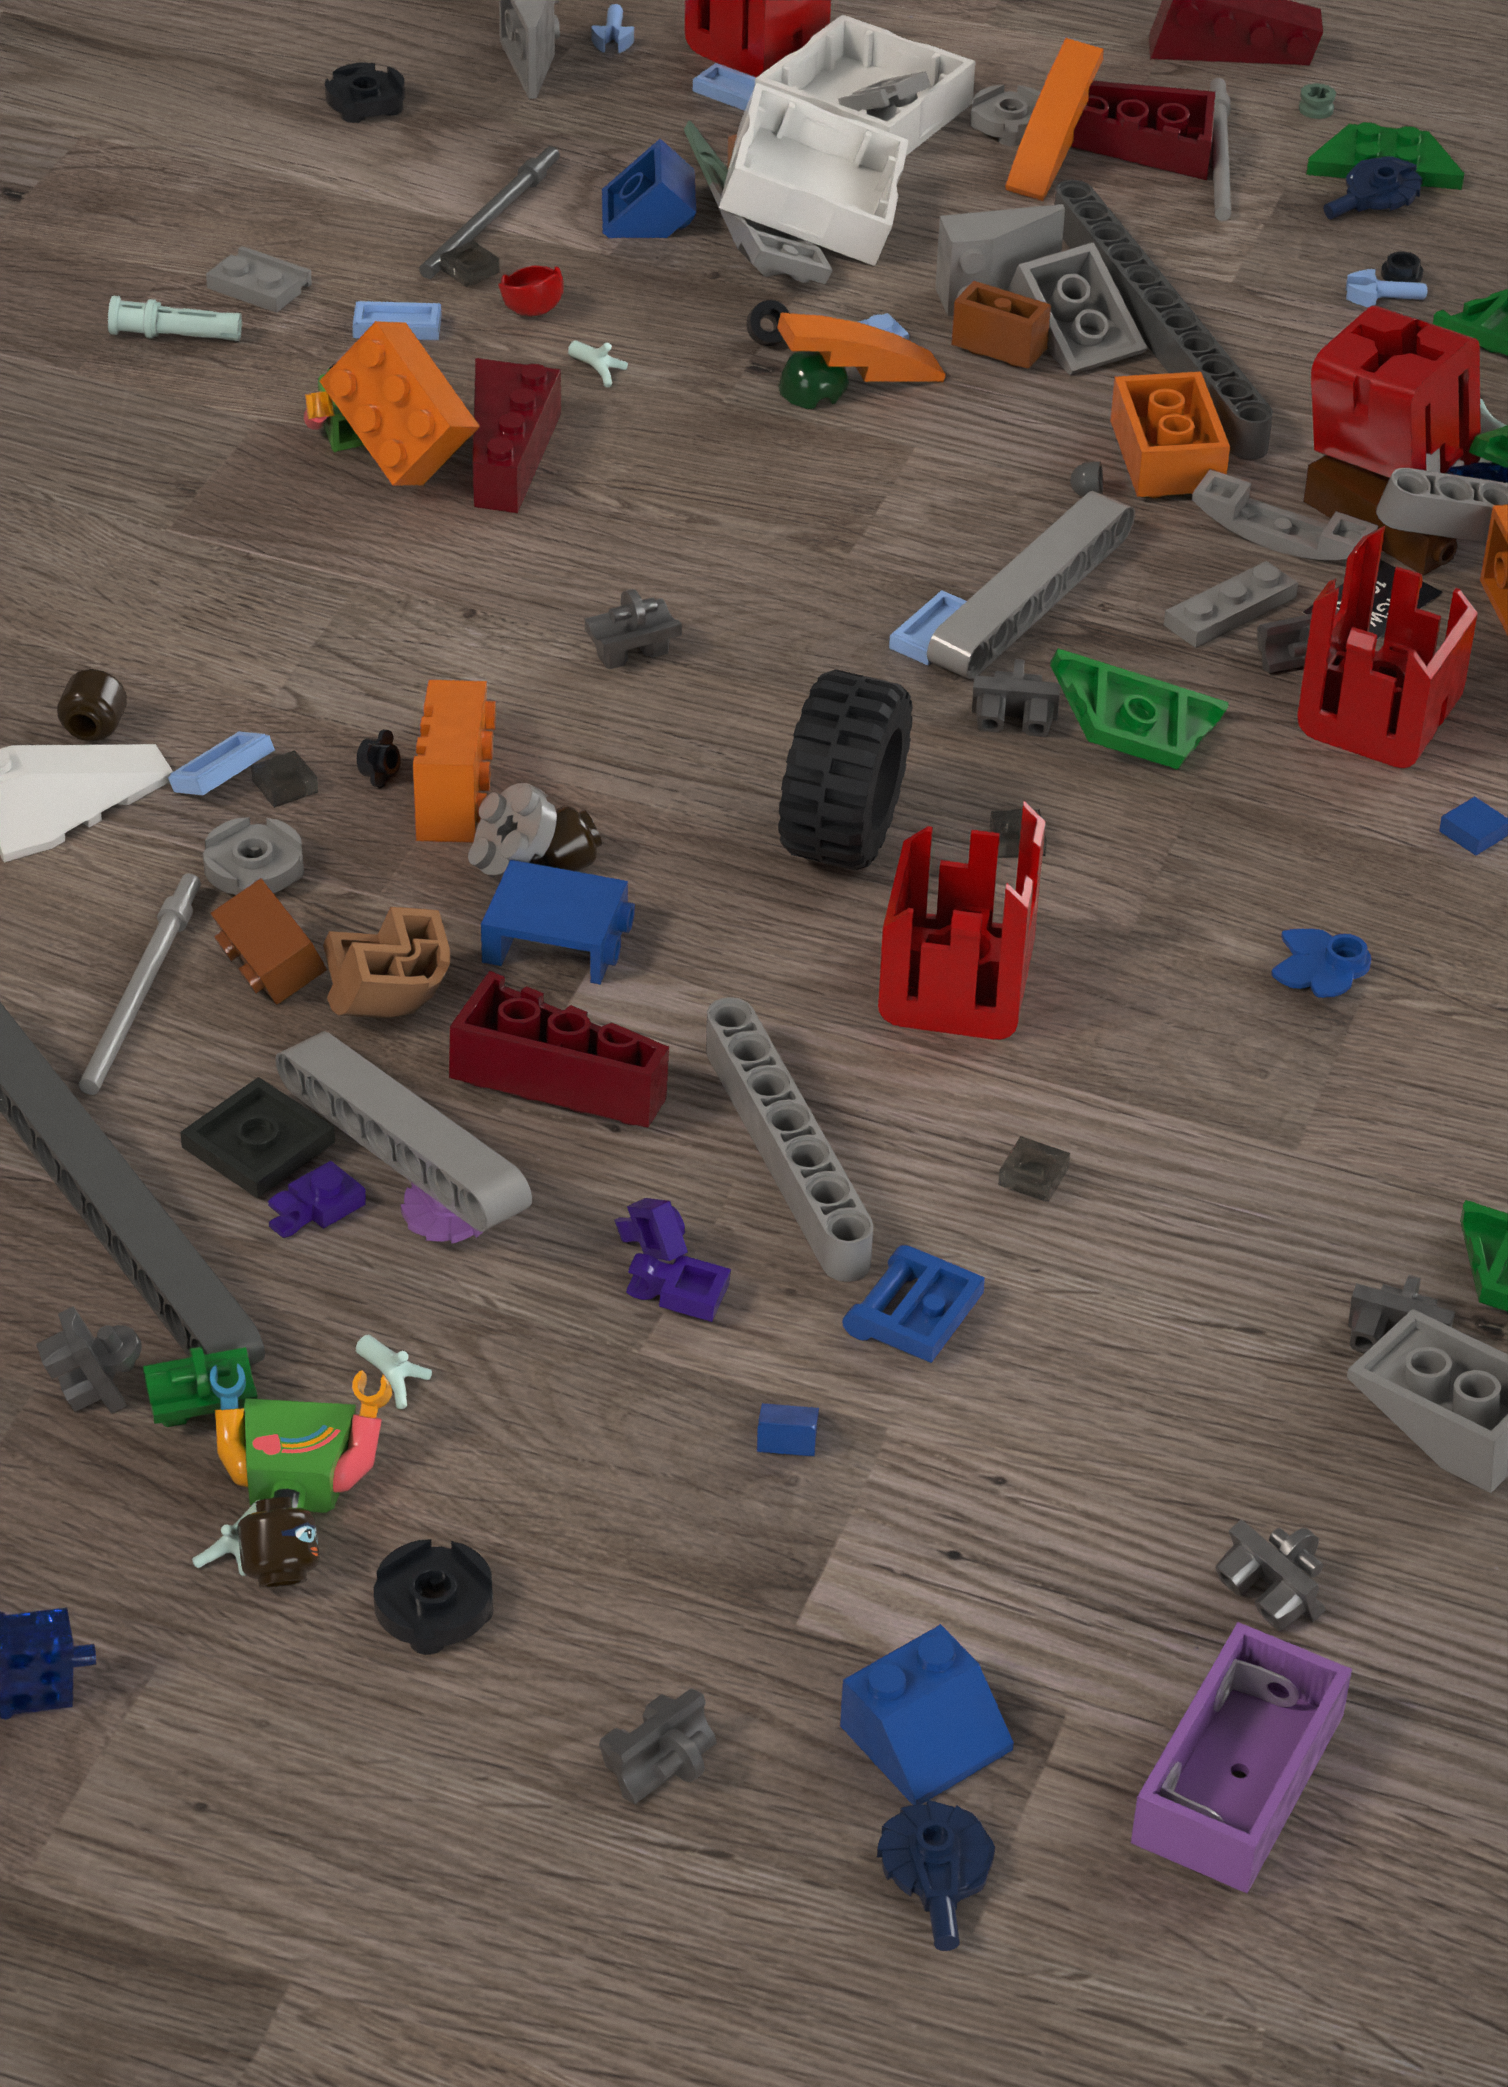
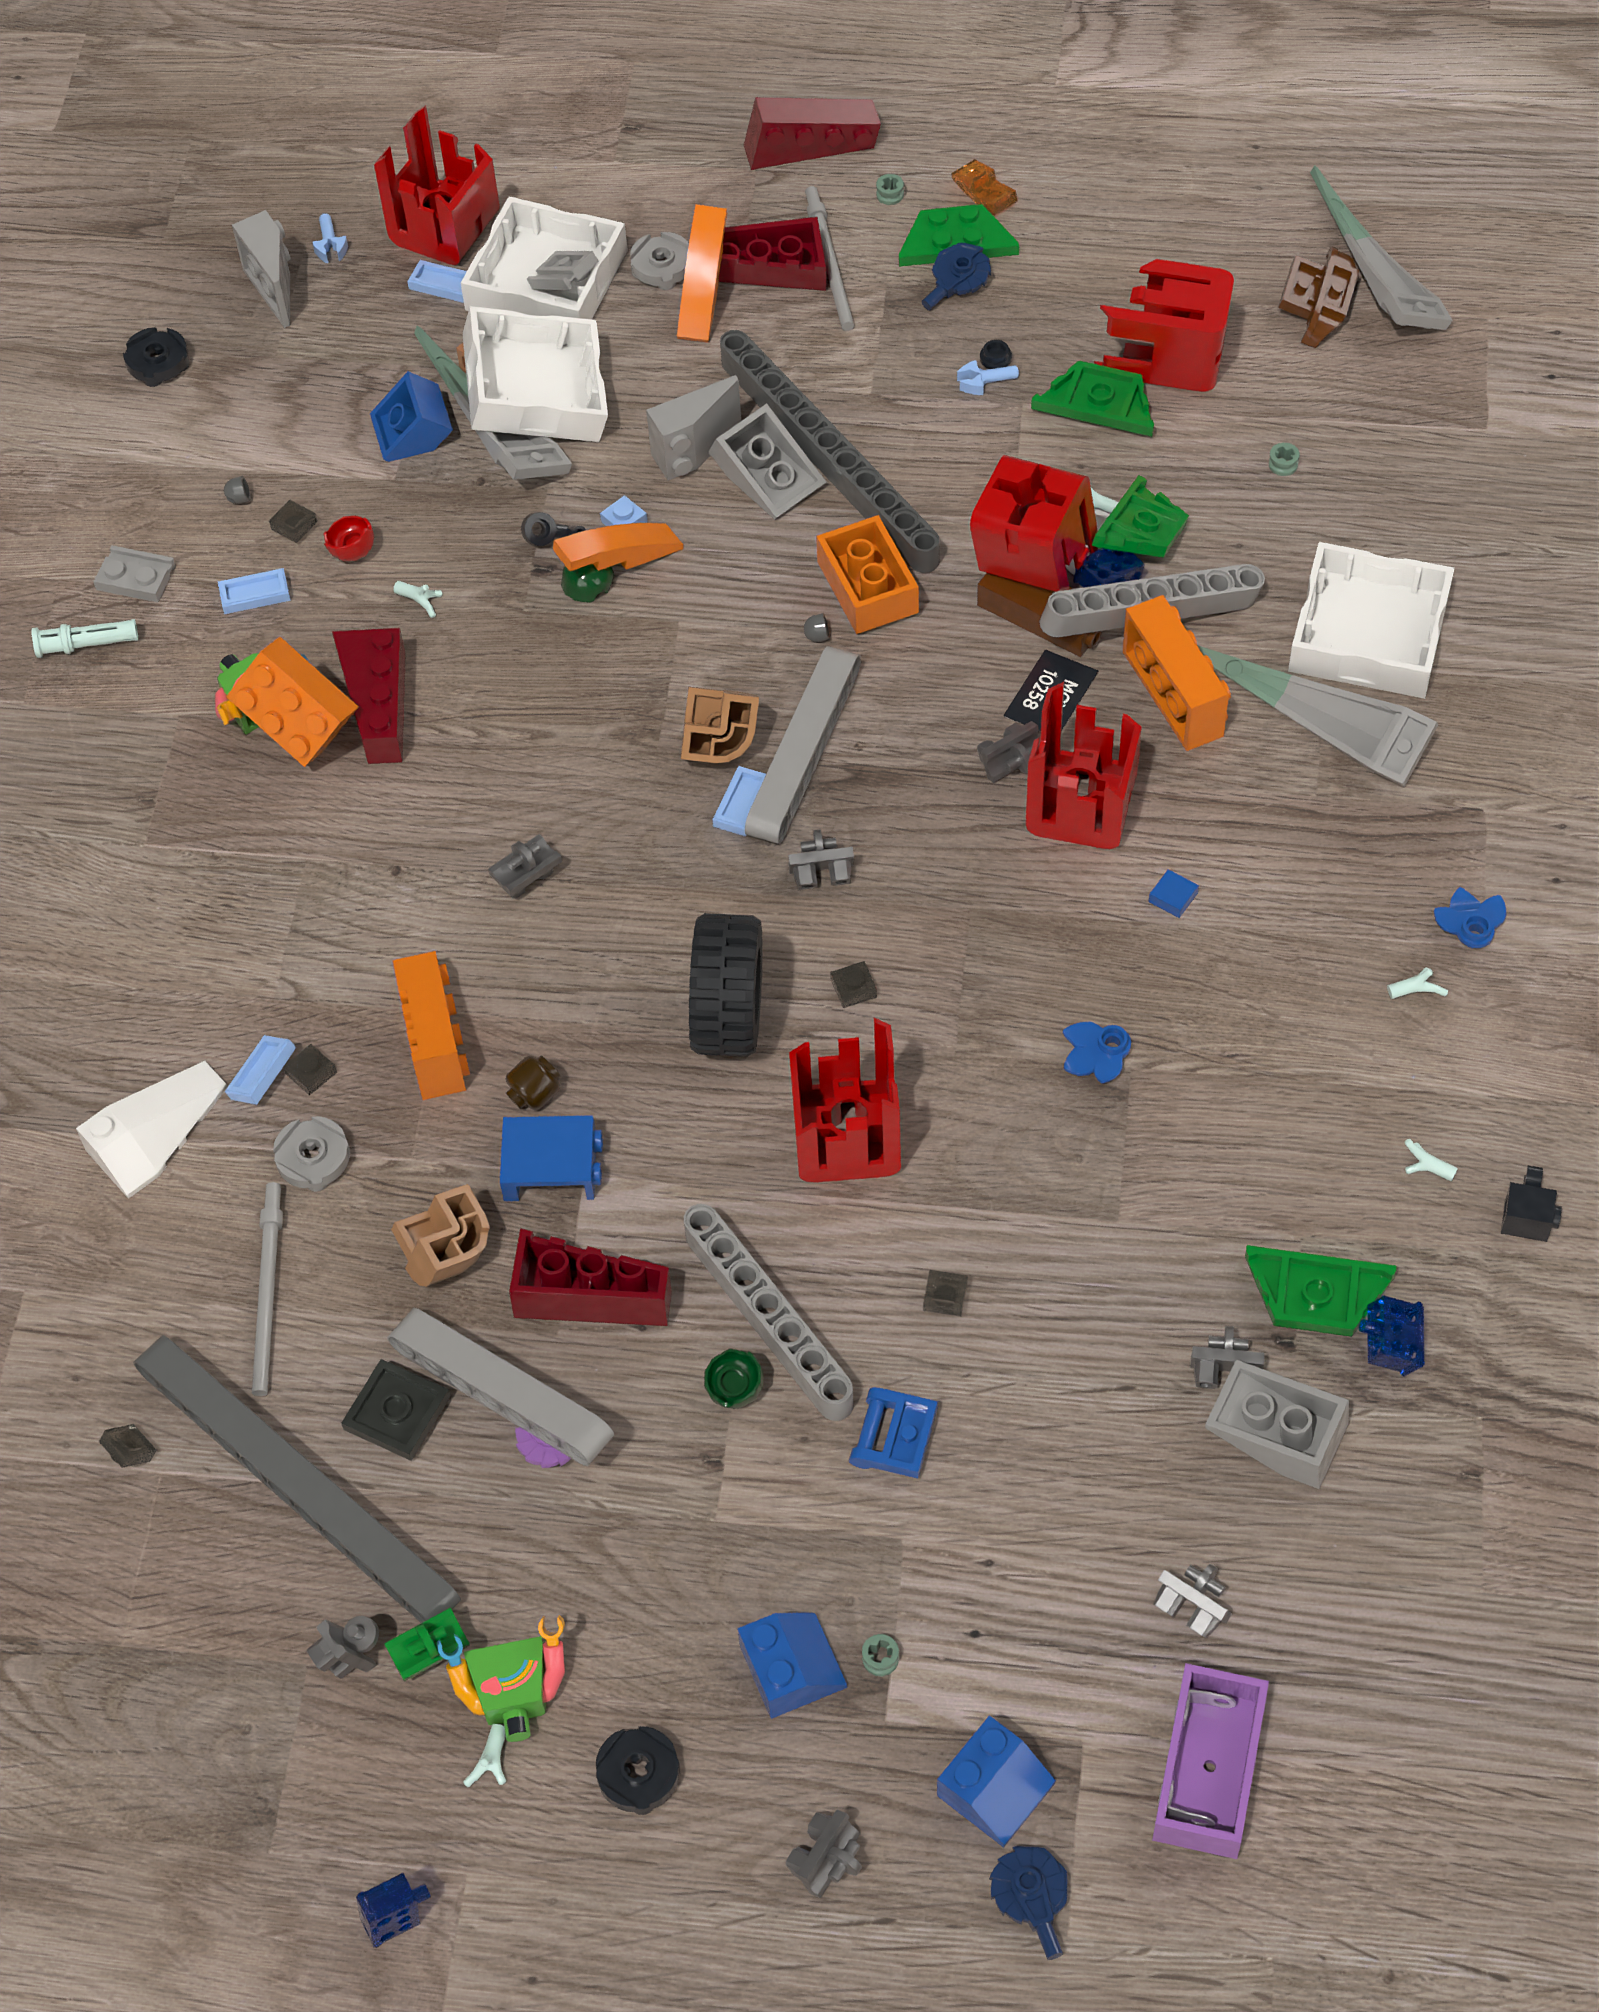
camera: 10 degrees left, 15 degrees up
(91, 705) = (148, 1042): dark brown head -> none
(267, 941) = (350, 1236): dark orange brick -> none
(278, 1543) = (522, 1762): dark brown head -> none
(318, 1196) = (453, 1448): dark purple plate -> none
(378, 758) = (374, 1036): black plate -> none
(392, 1365) = (550, 1582): light aqua bar -> none
(413, 225) = (237, 490): none -> dark grey hinge
(512, 828) = (482, 1077): light grey plate -> none
(529, 175) = (310, 413): dark grey bar -> none
(656, 1228) = (701, 1421): dark purple plate -> none
(684, 1287) = (736, 1460): dark purple plate -> none
(684, 1518) = (790, 1661): none -> blue slope
(717, 1196) = (733, 1378): none -> dark green hair
(787, 1429) = (836, 1561): blue slope -> none
(818, 1557) = (887, 1664): none -> sand green bush
(928, 535) = (718, 724): none -> medium nougat brick
(1001, 324) = (714, 492): dark orange brick -> none
(1135, 710) = (910, 854): green wing -> none
(1230, 604) = (950, 723): light grey plate -> none
(1277, 529) = (969, 640): light grey slope -> none
(1435, 114) = (980, 185): none -> clear orange slope

